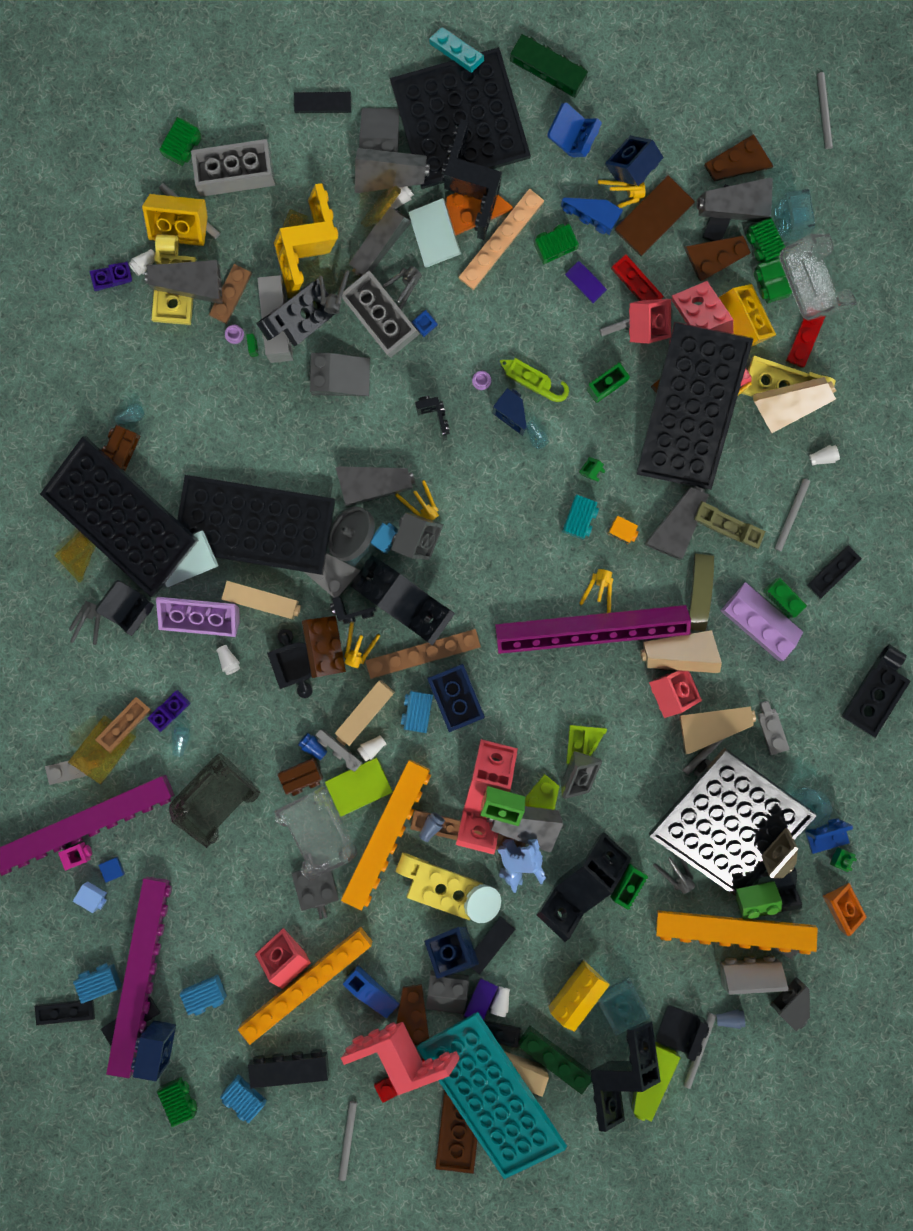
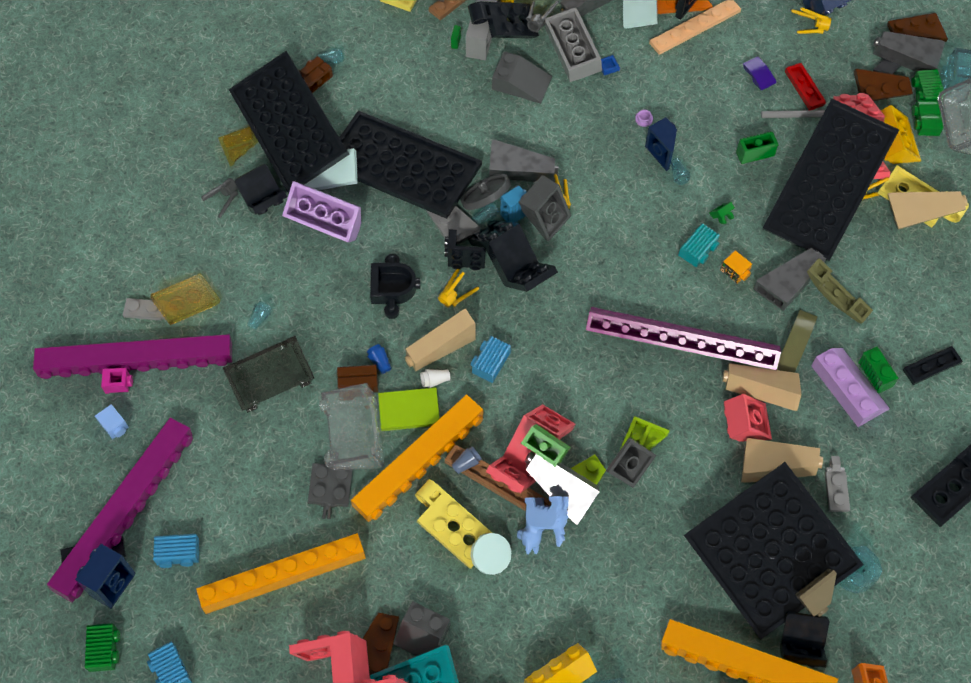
camera: 20 degrees right, 25 degrees down
(64, 1012) = (34, 523): black tile -> none
(97, 983) = (79, 503): dark azure brick -> none
(111, 869) = (143, 406): blue tile -> none
(123, 725) = (213, 283): medium nougat plate -> none
(168, 711) = (257, 290): dark purple slope -> none
(227, 660) = (332, 265): white cone -> none
(234, 334) = (443, 27): lavender plate -> none
(261, 600) = (384, 221): tan slope -> none
(282, 959) = (270, 542): coral slope -> none
(288, 1069) = (229, 653): black brick -> none
(323, 646) = (424, 275): reddish brown plate -> none
(339, 750) = (403, 367): light grey hinge -> none
(369, 991) = (344, 602): blue slope -> none
(410, 278) = (608, 28): dark grey plant -> none
(422, 653) = (517, 314): medium nougat plate -> none
(428, 405) = (593, 119): black bracket -> none
(451, 952) = (443, 587): dark blue slope -> none
(456, 697) = (532, 355): dark blue brick -> none
(481, 999) = (460, 647): dark purple slope -> none
(492, 943) = (483, 601): black tile -> none
(501, 1002) = (473, 663): white cone -> none
(532, 379) = (690, 129): lime plate -> none
(556, 243) = (742, 39): green brick -> none
(584, 886) = (600, 564): black bracket -> none
(596, 212) = (783, 27): blue slope -> none
(602, 579) = (704, 303): yellow plant -> none
(629, 886) = (647, 584): green brick -> none
(650, 320) = (806, 111): coral slope -> none
(654, 216) = (833, 45): reddish brown tile -> none
(684, 881) = (706, 603): dark grey plant -> none
(759, 900) = (781, 640): bright green brick -> none
(792, 514) = (902, 305): light grey bar -> none
(804, 341) = (947, 170): red plate -> none
(825, 456) = (946, 264): white cone -> none
(828, 835) = (871, 604): blue bracket -> none
(843, 859) = (881, 636): green tile -> none

